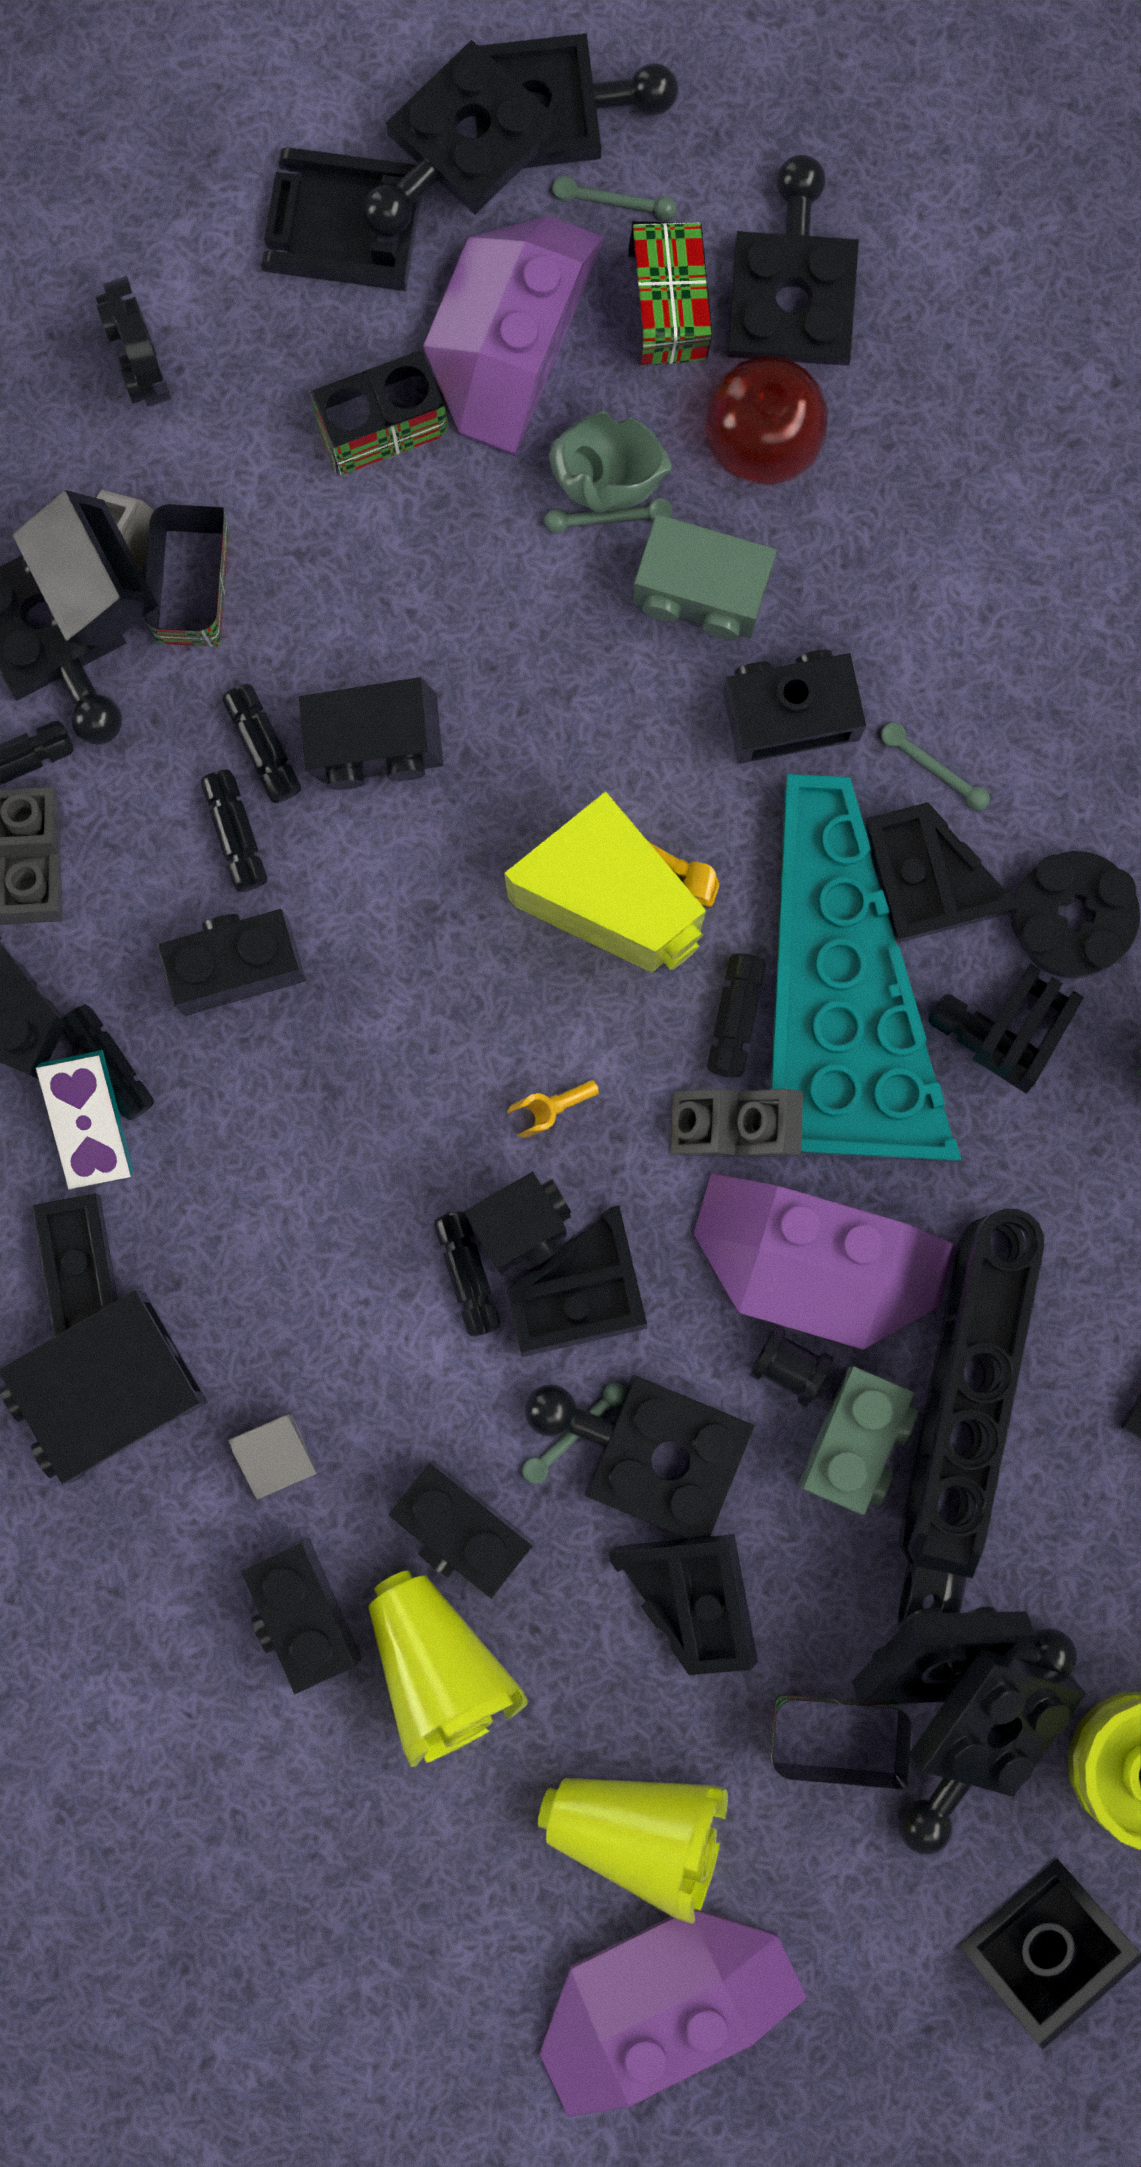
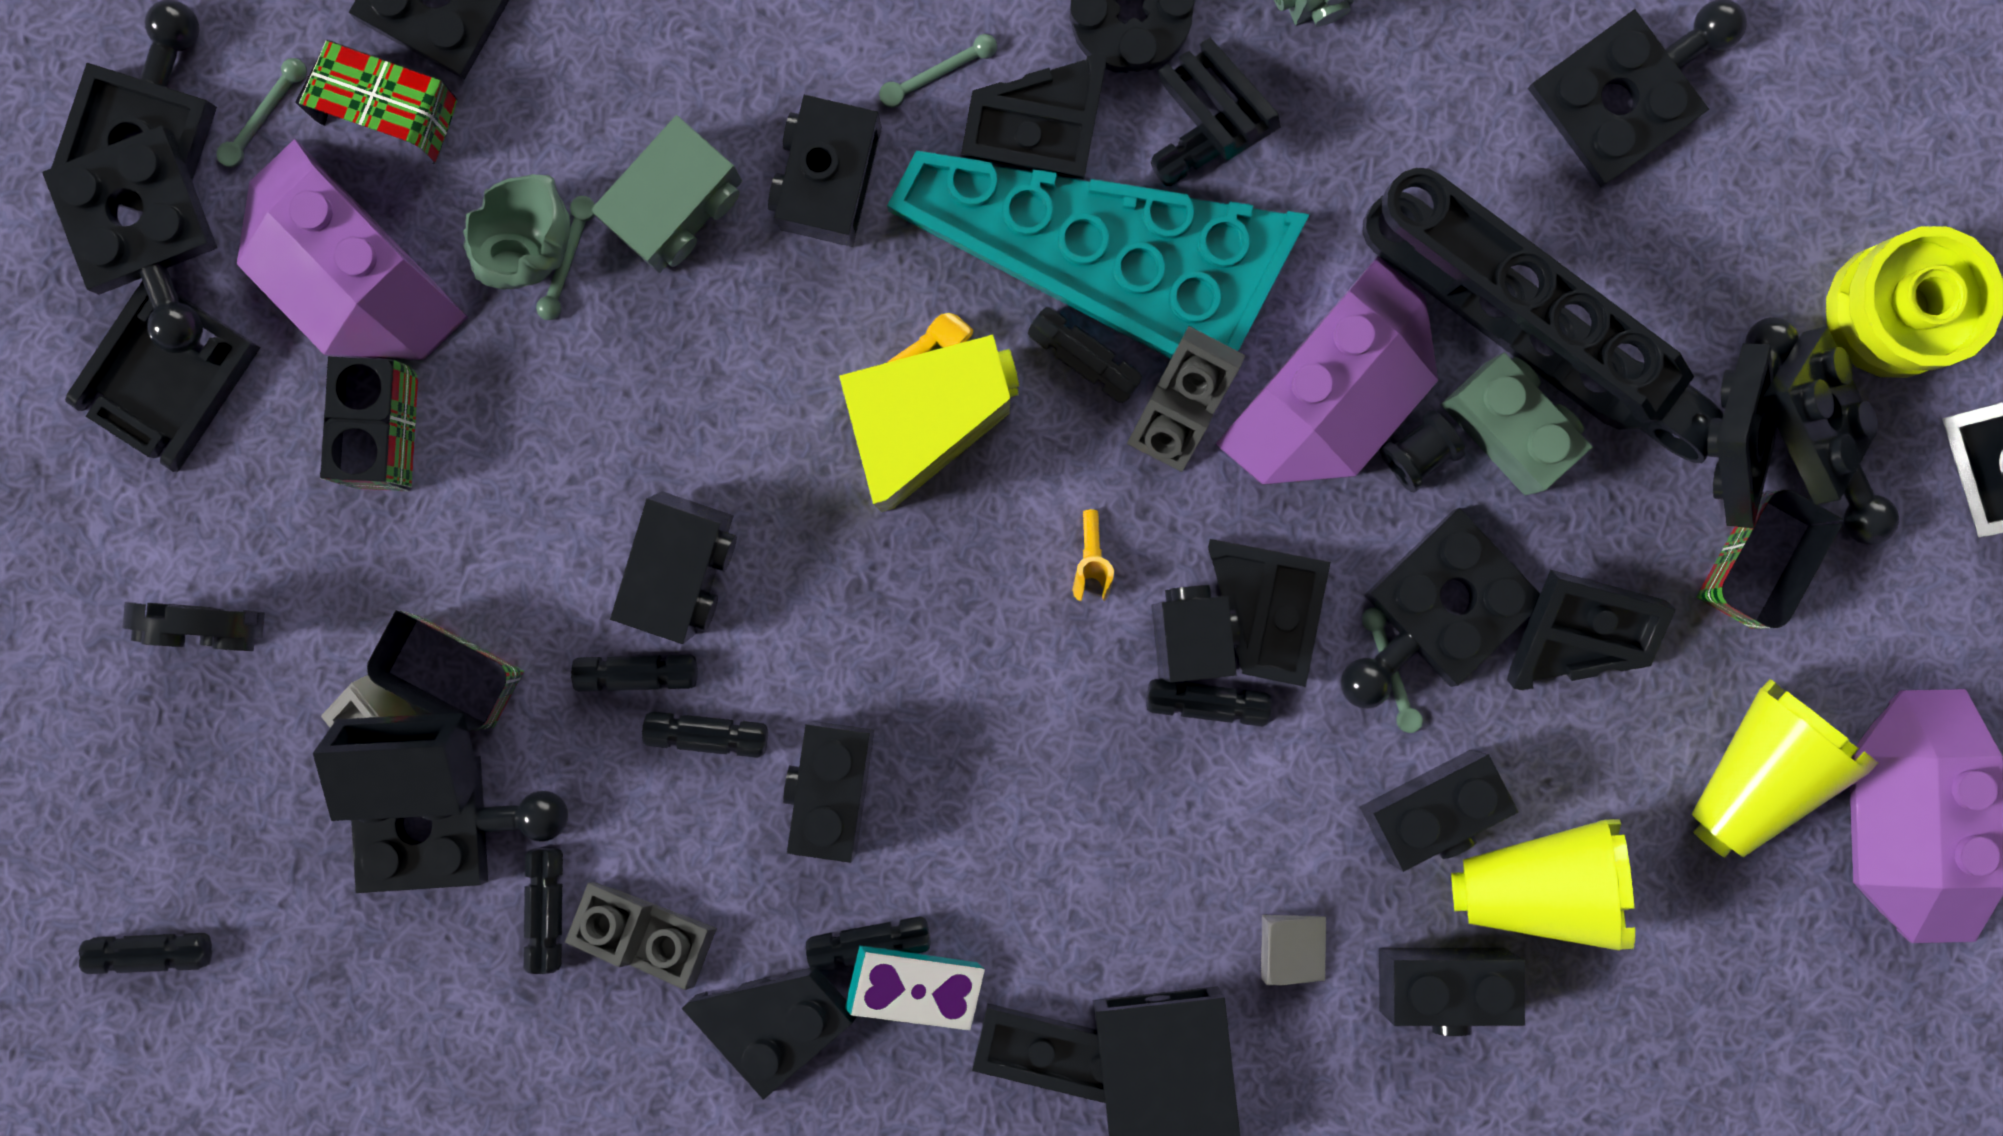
camera: 70 degrees left, 5 degrees up
(767, 420) = (543, 70): clear red cylinder -> none

